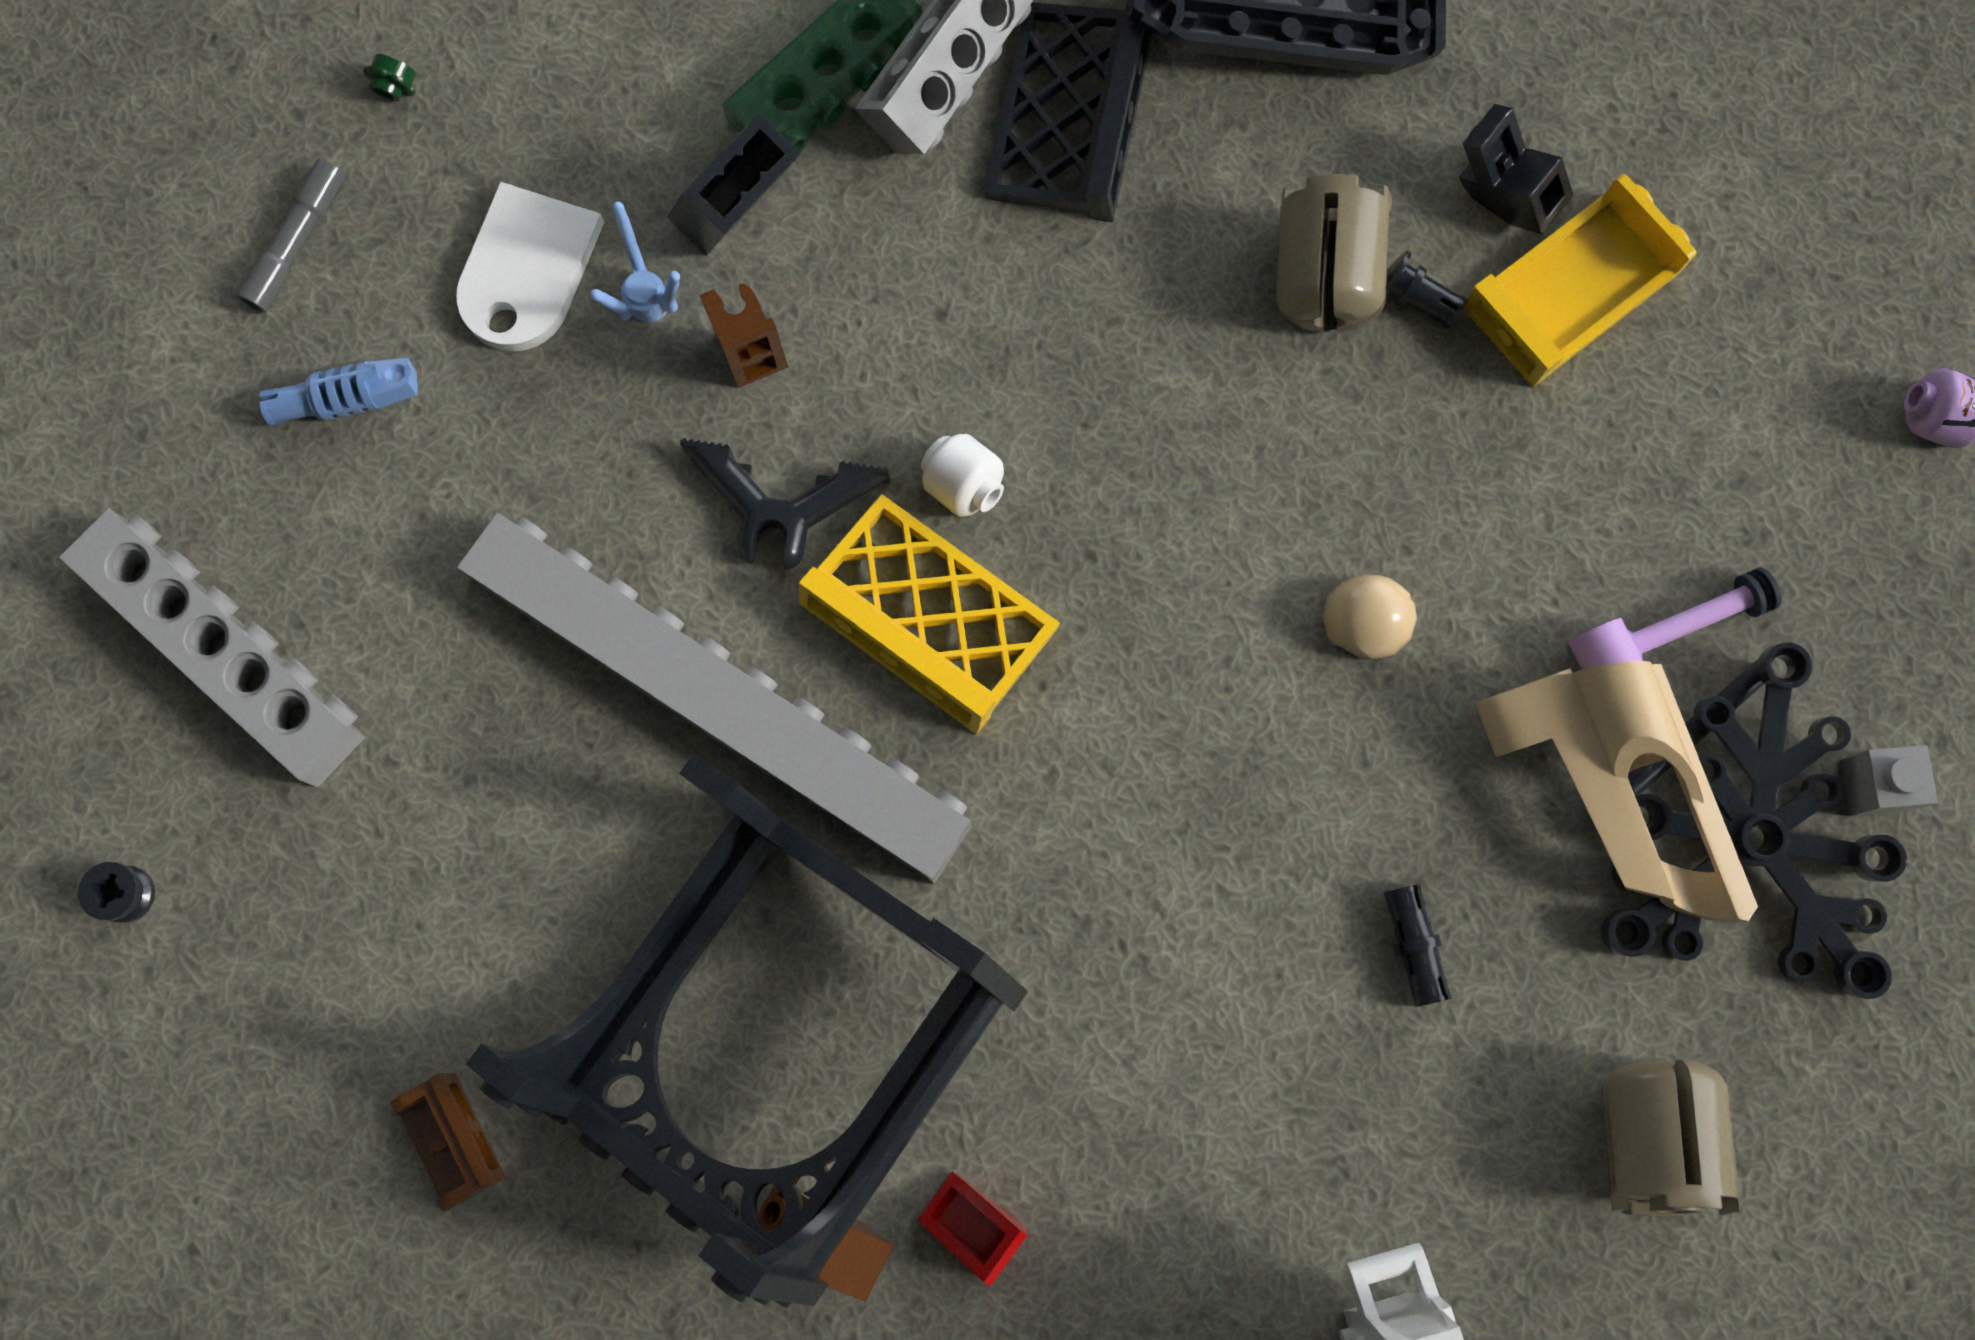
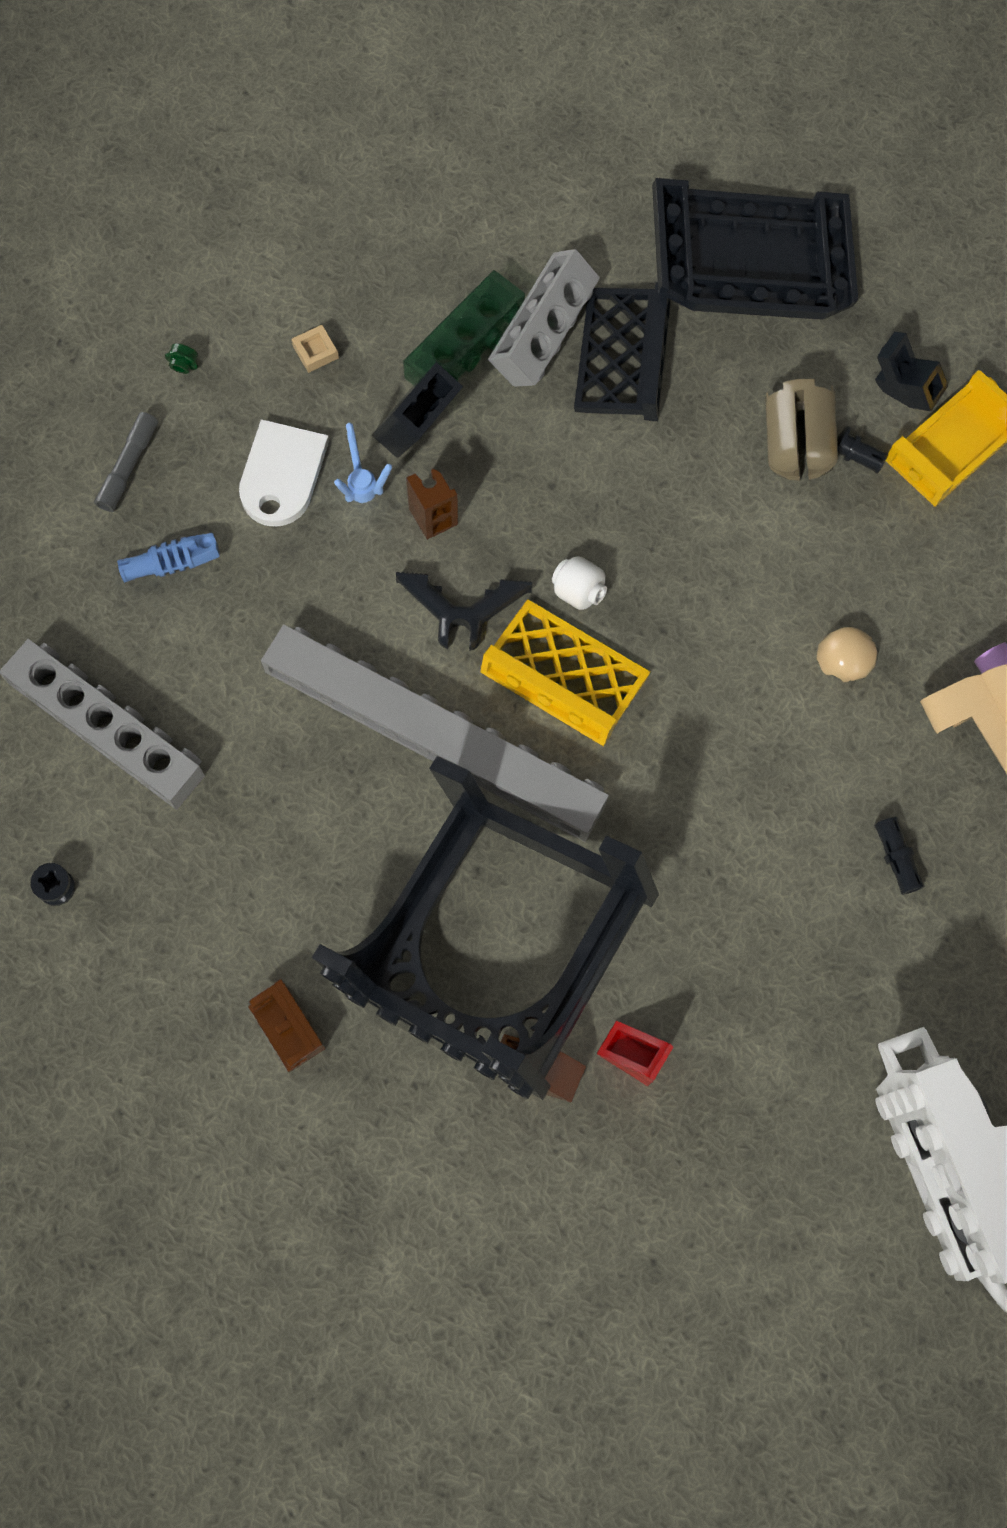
camera: 10 degrees left, 5 degrees down
(594, 74) = (315, 348): none -> tan plate

